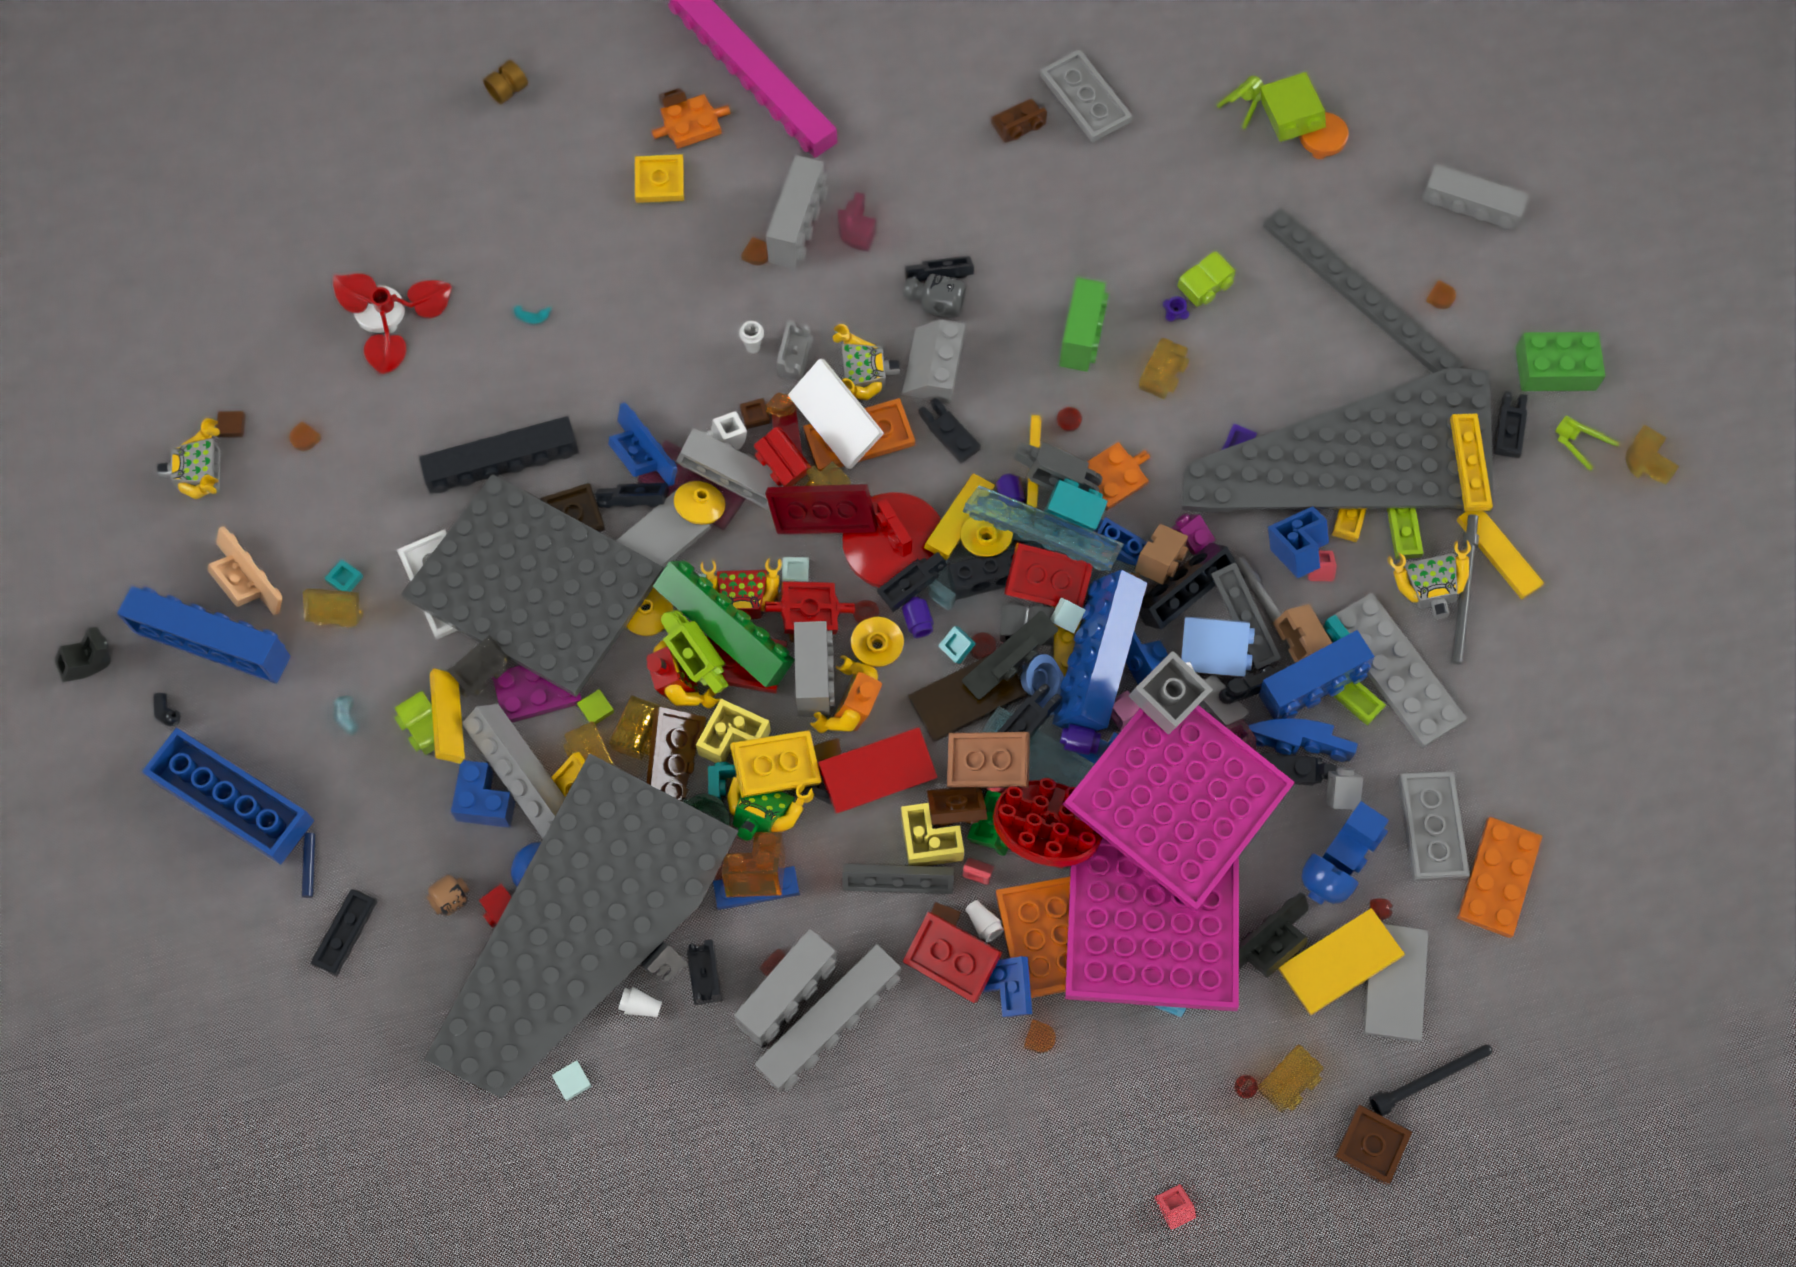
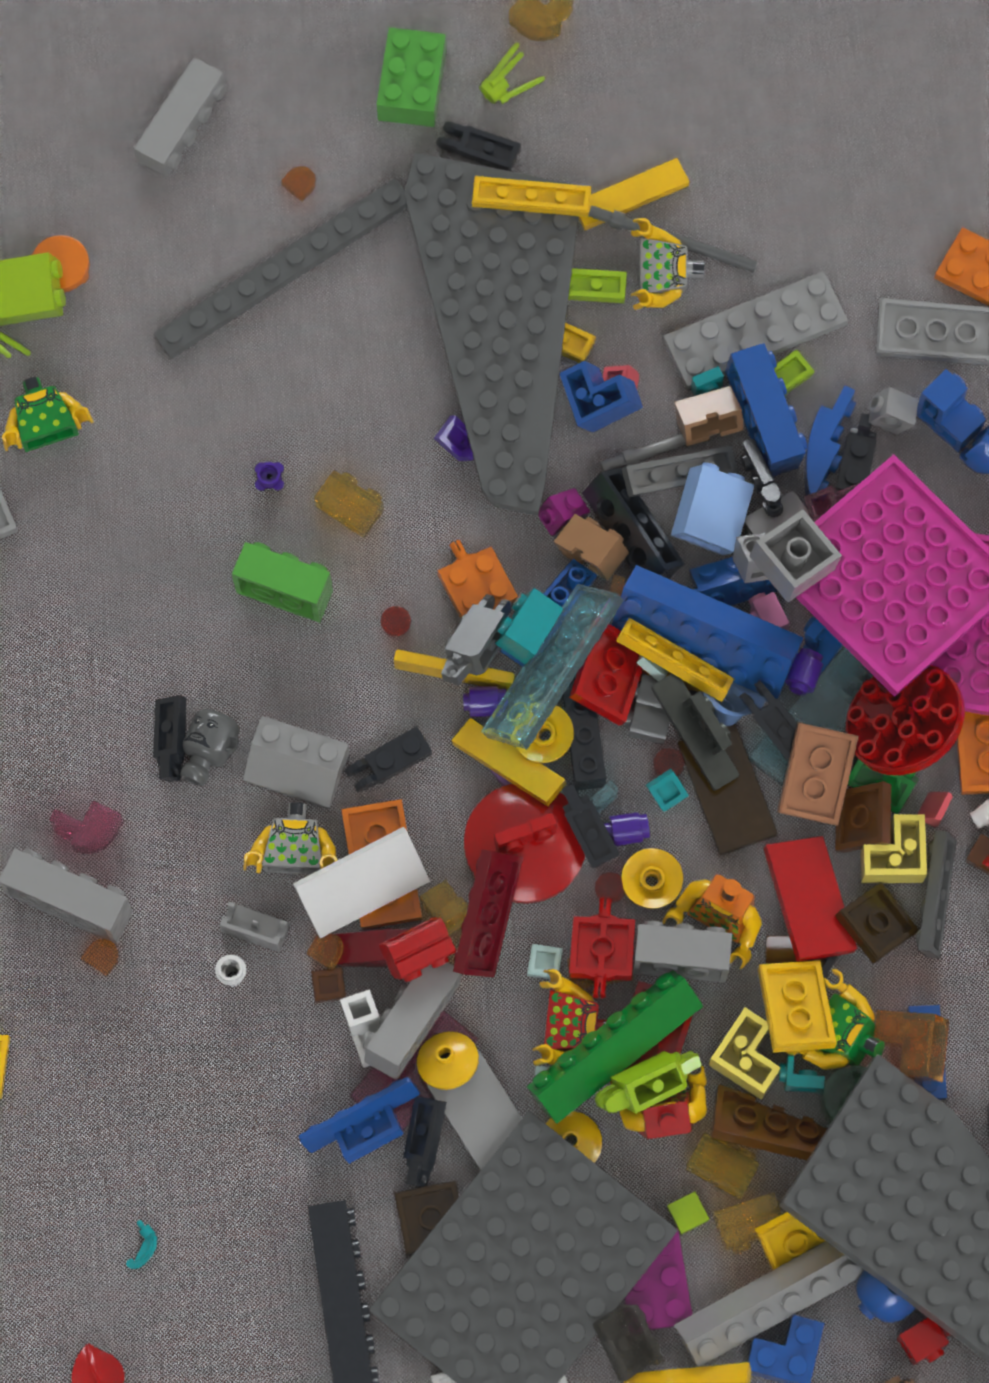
camera: 80 degrees left, 5 degrees up
(864, 829) = (877, 923): none -> dark brown tile
(1068, 627) = (675, 659): none -> yellow tile
(1187, 138) = (43, 417): none -> torso
(1206, 279) = (238, 433): lime brick -> none

